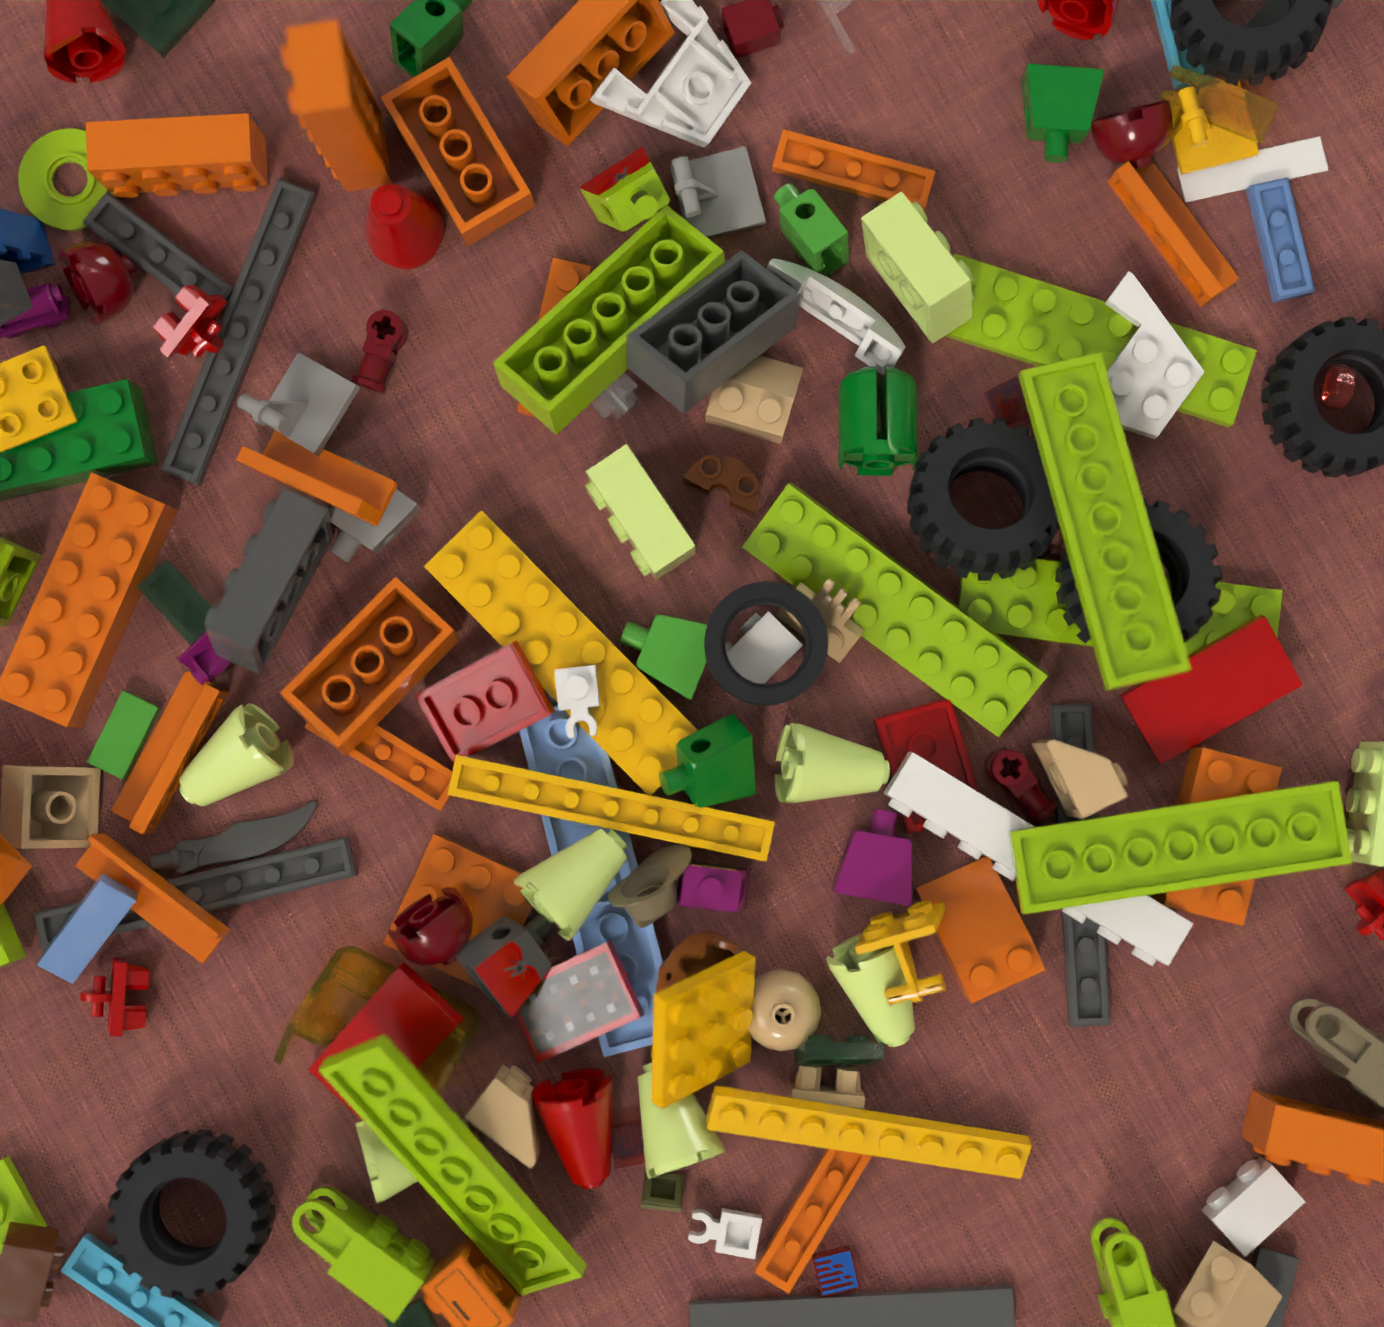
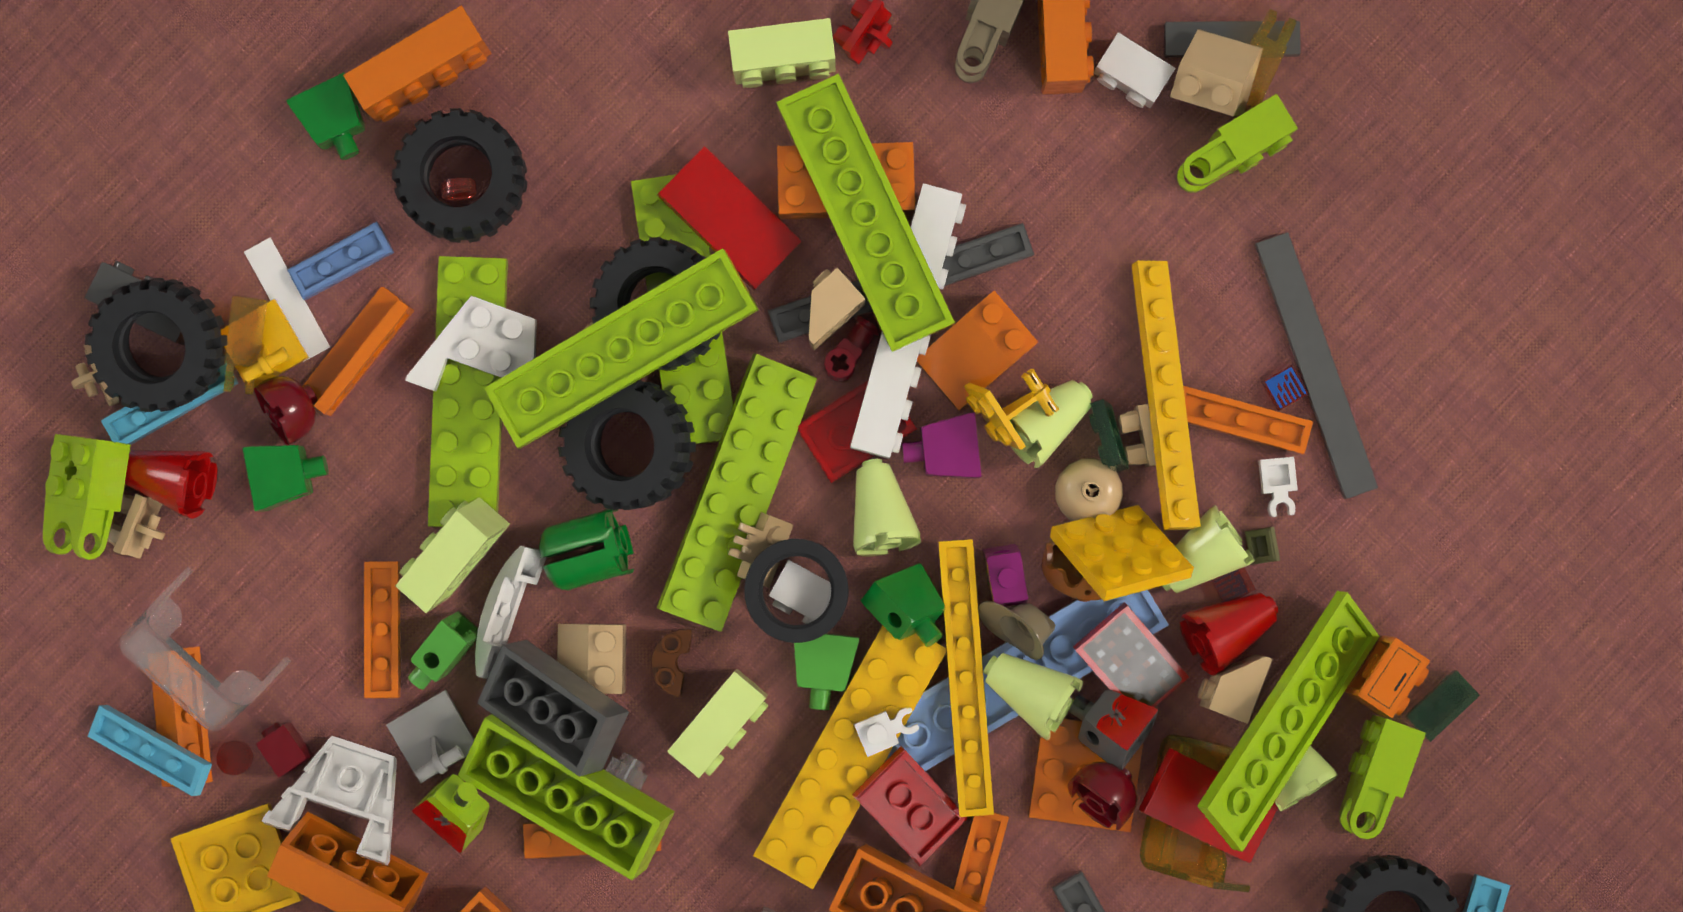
camera: 105 degrees left, 0 degrees up
(1008, 401) = (540, 449): clear red tile -> none

